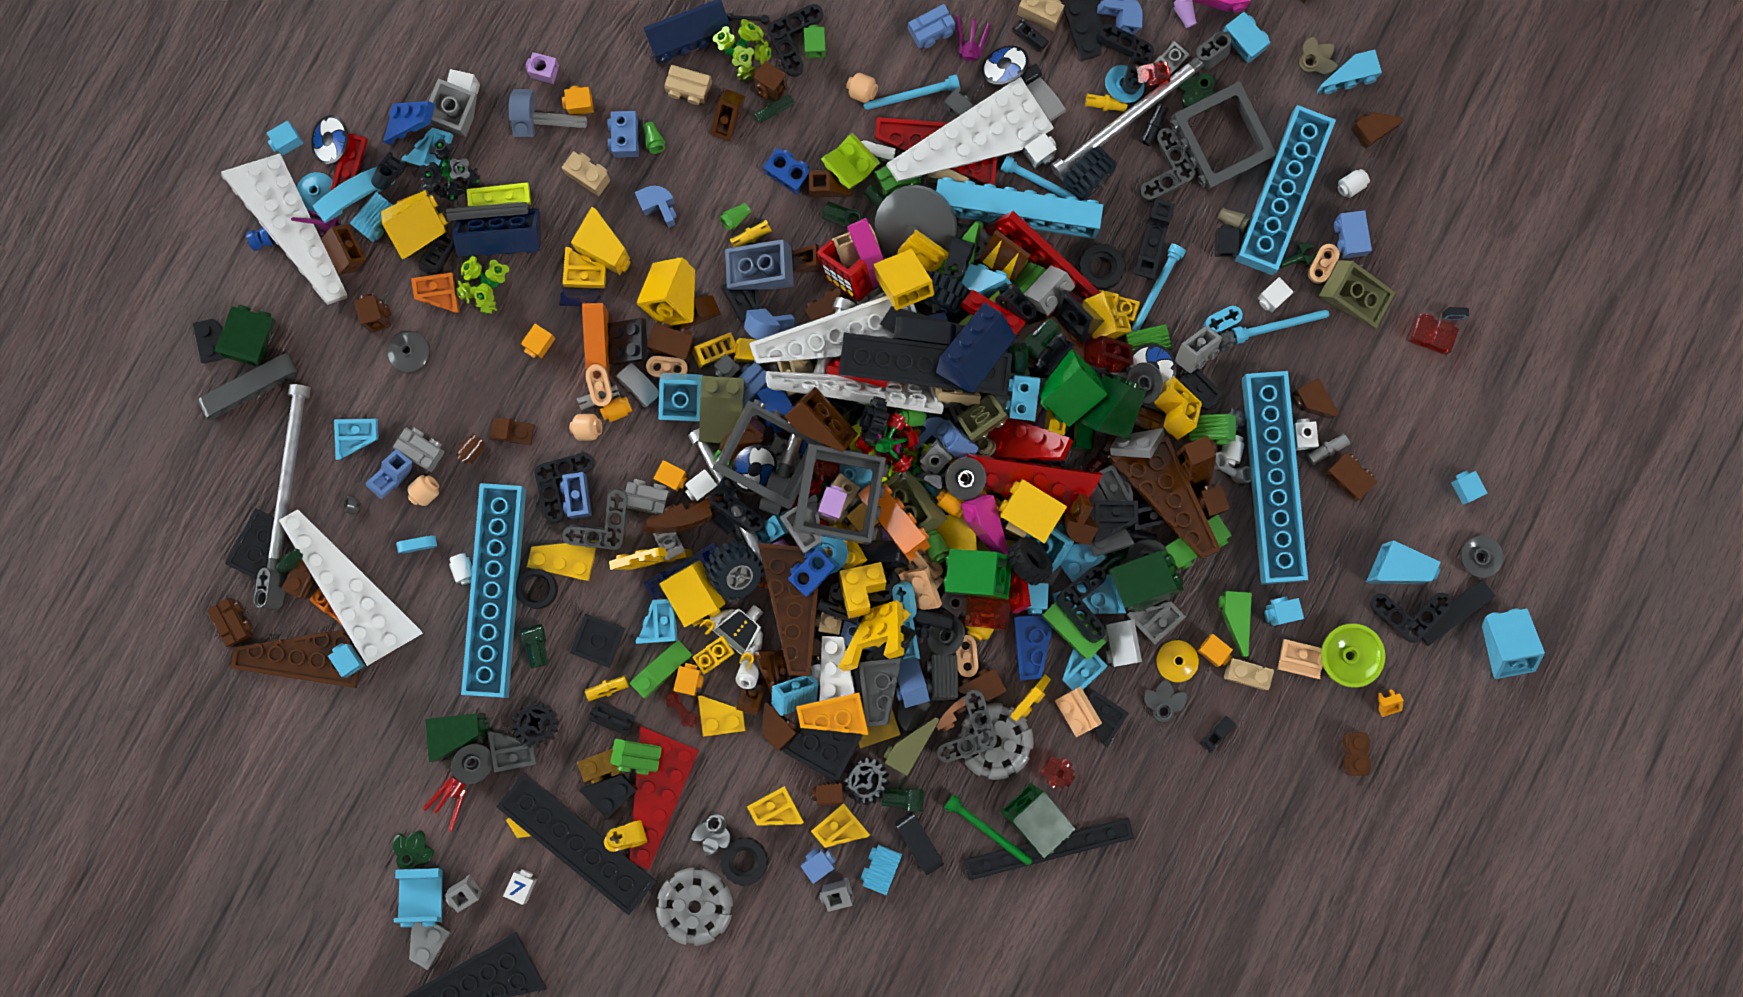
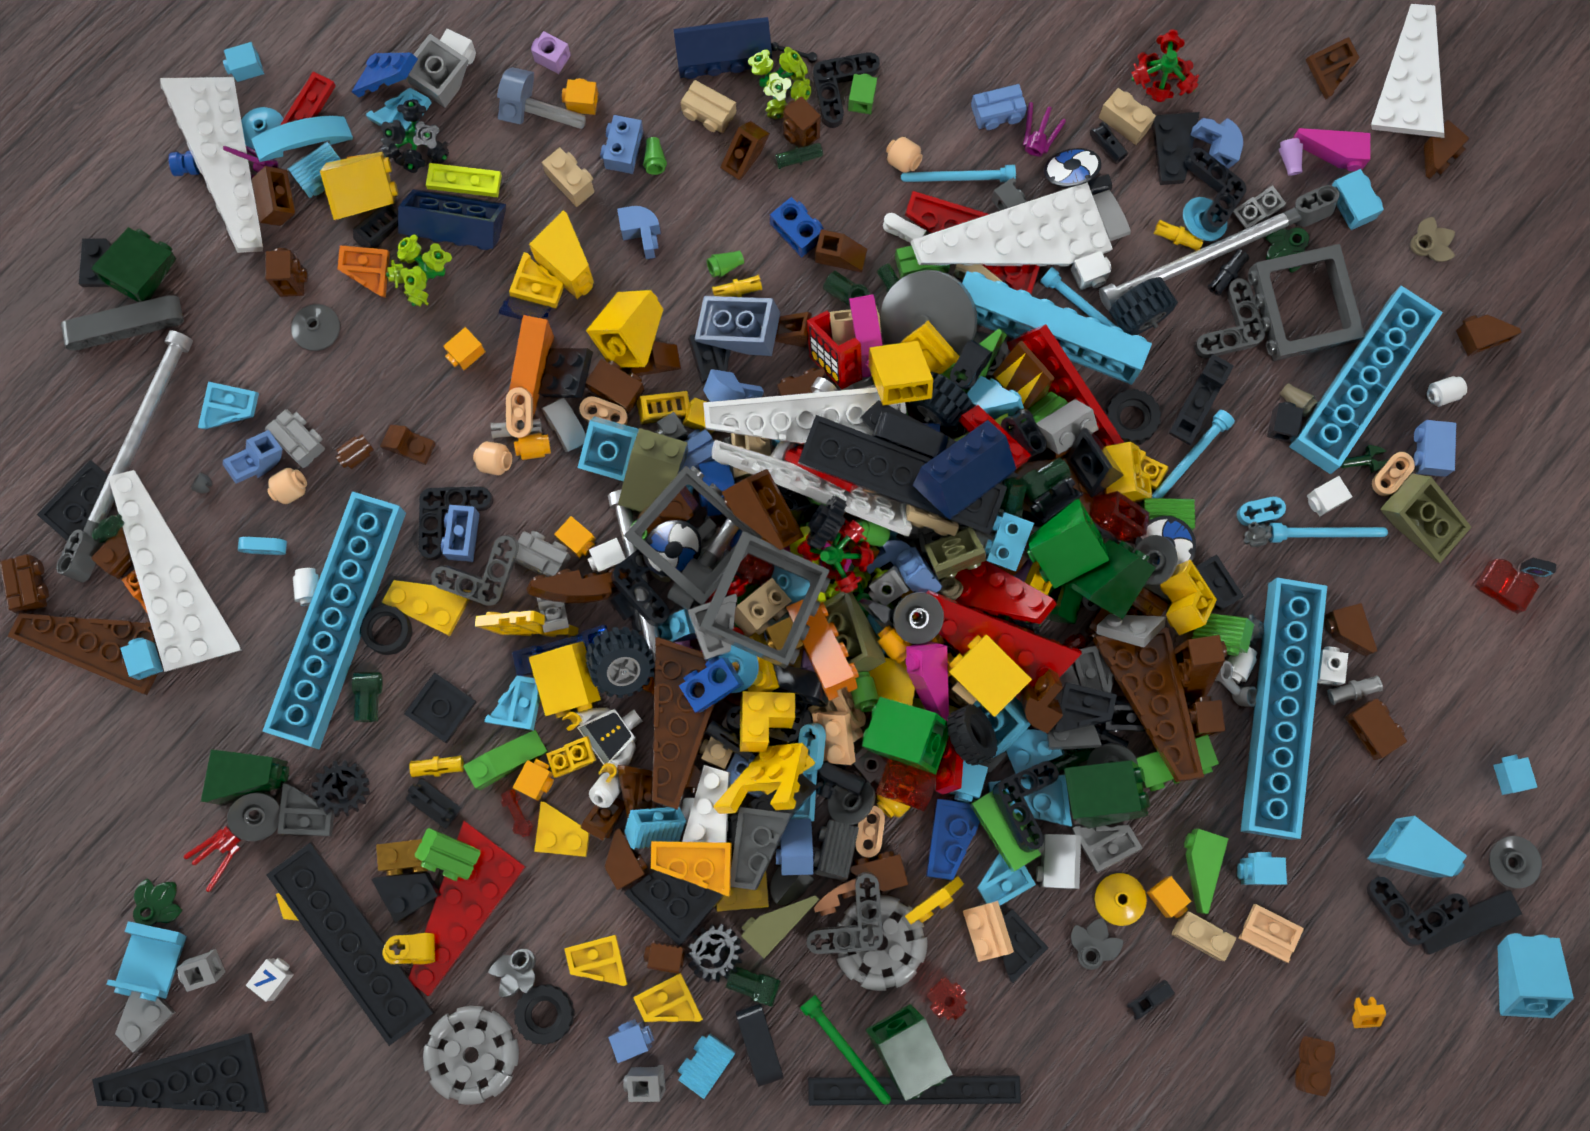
camera: 10 degrees right, 5 degrees down
(329, 139) = (292, 74): shield -> none
(387, 172) = (346, 123): black piece -> none
(487, 211) = (445, 191): dark grey axle -> none
(832, 502) = (753, 607): lavender brick -> none
(851, 162) = (872, 232): lime bracket -> none
(1154, 73) = (1242, 213): clear red brick -> none
(1198, 349) = (1226, 536): light grey brick -> none
(1359, 69) = (1480, 264): medium azure slope -> none
(1366, 652) = (1351, 947): lime dish -> none

